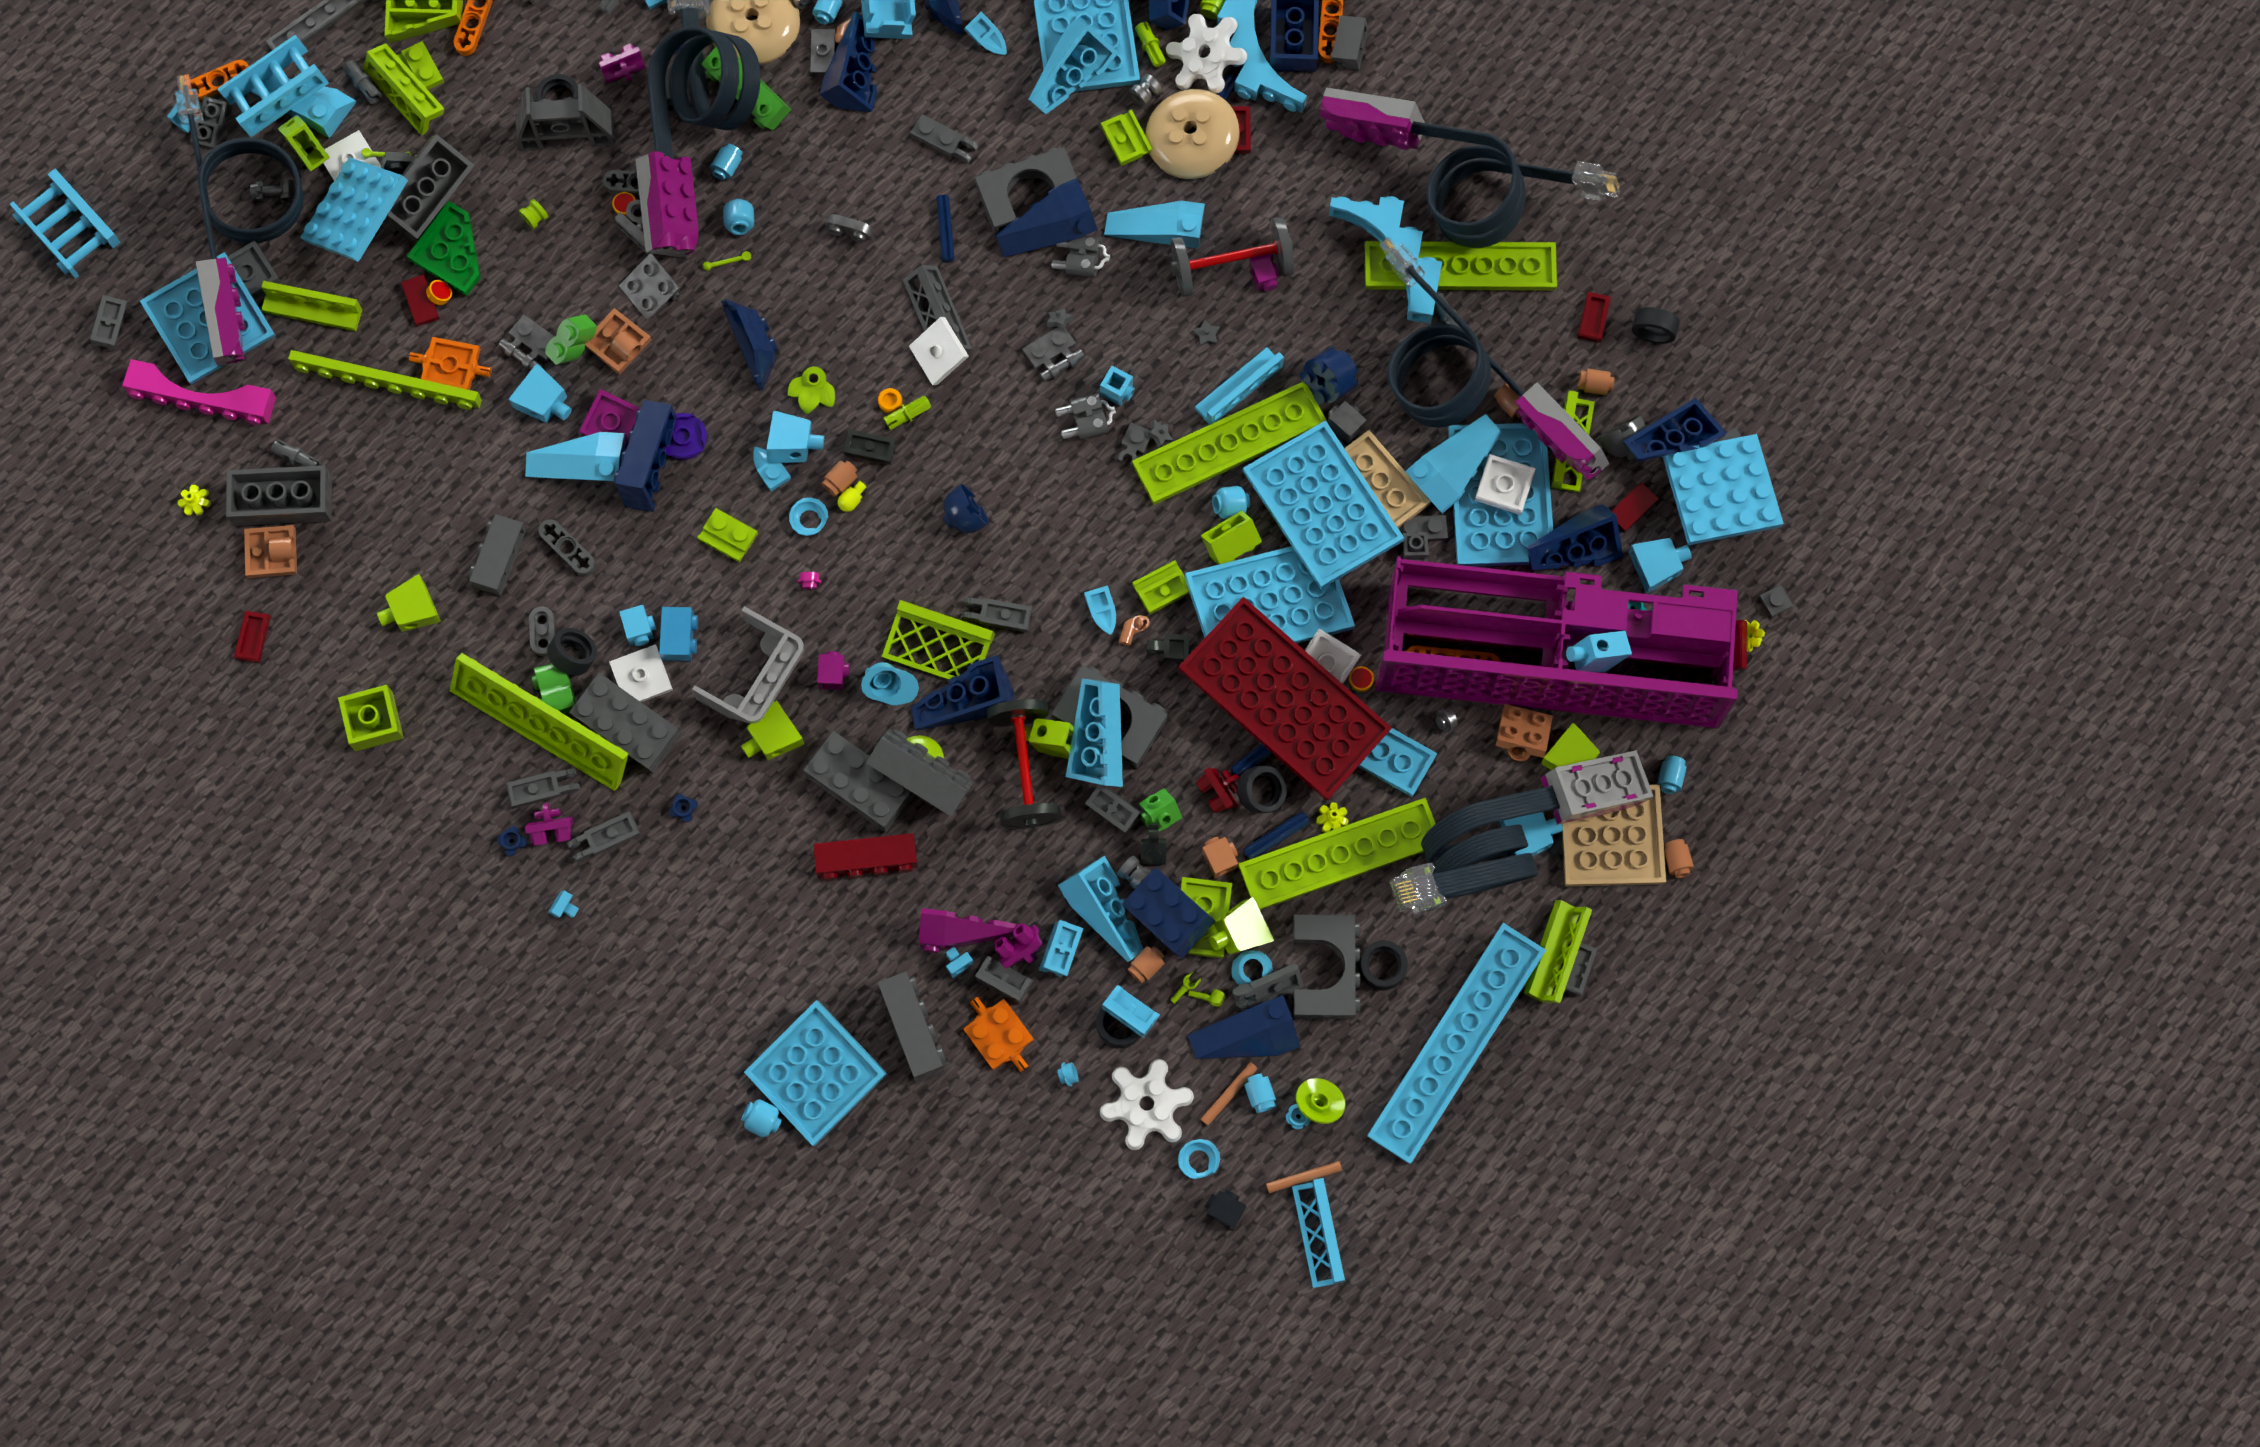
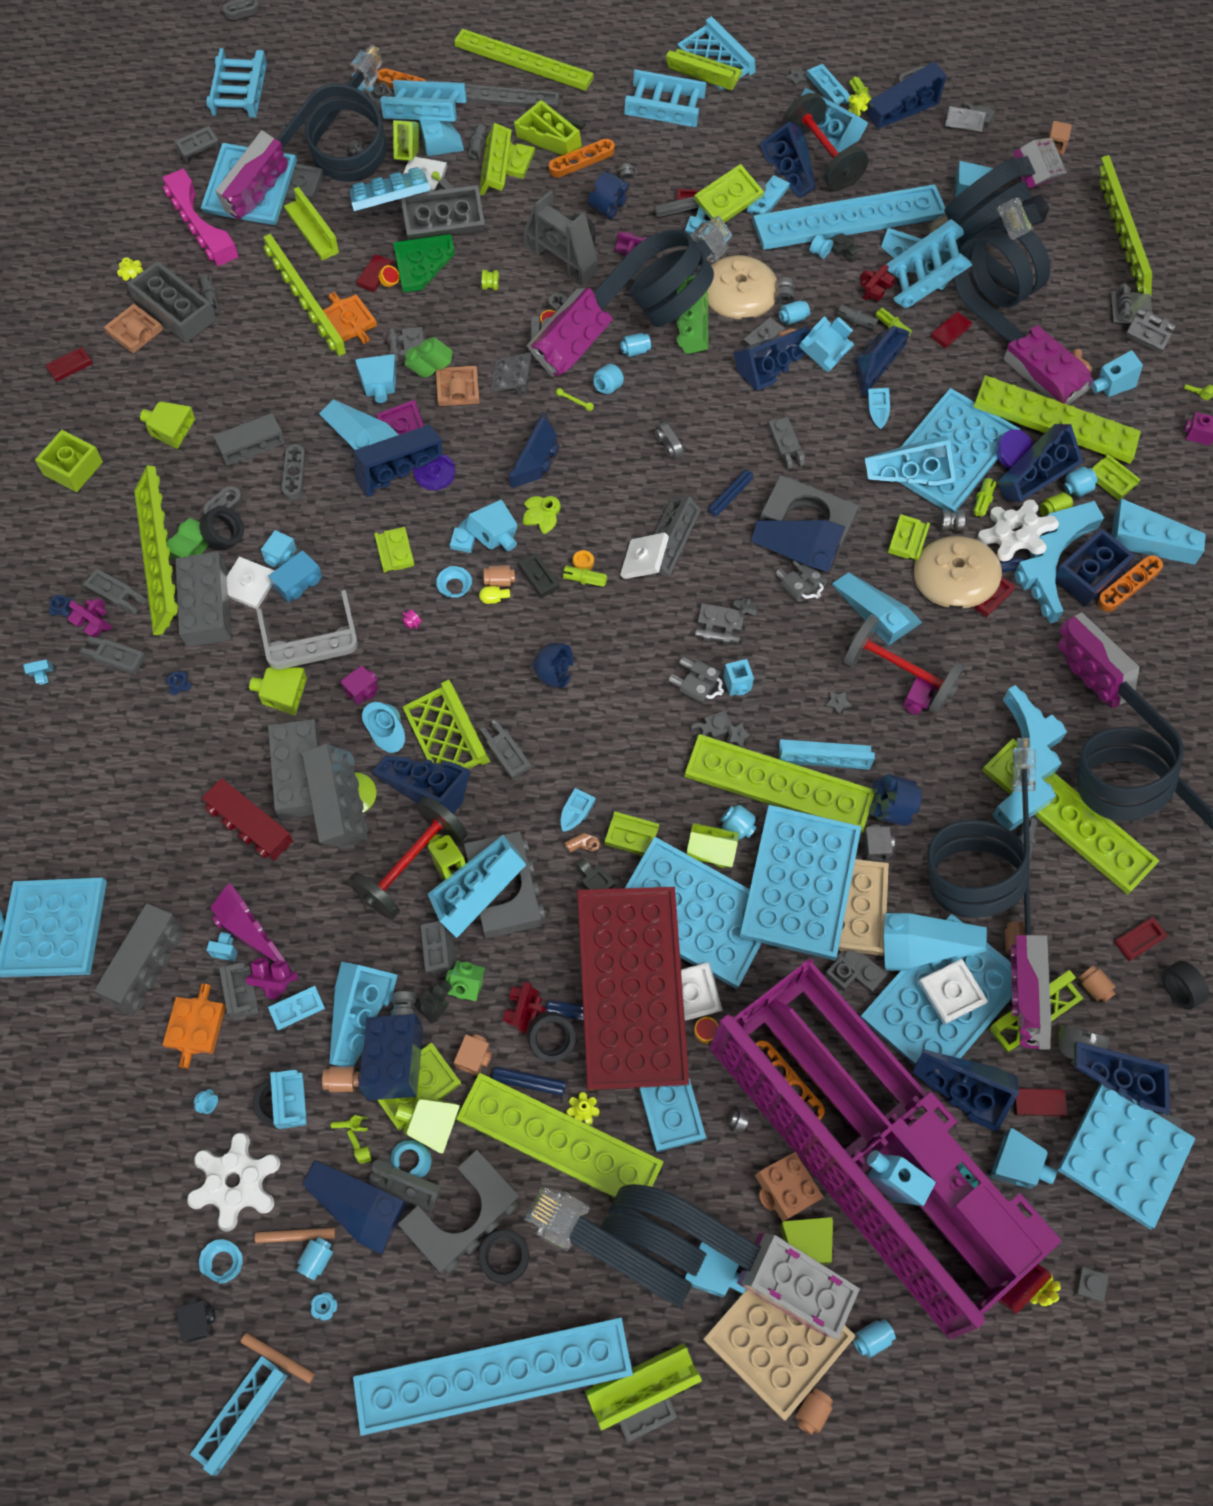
camera: 45 degrees right, 10 degrees down
(549, 33) = (608, 194): none -> dark blue brick
(1323, 1093) = (360, 1309): lime dish -> none
(1350, 42) = (1130, 607): dark grey hinge -> none

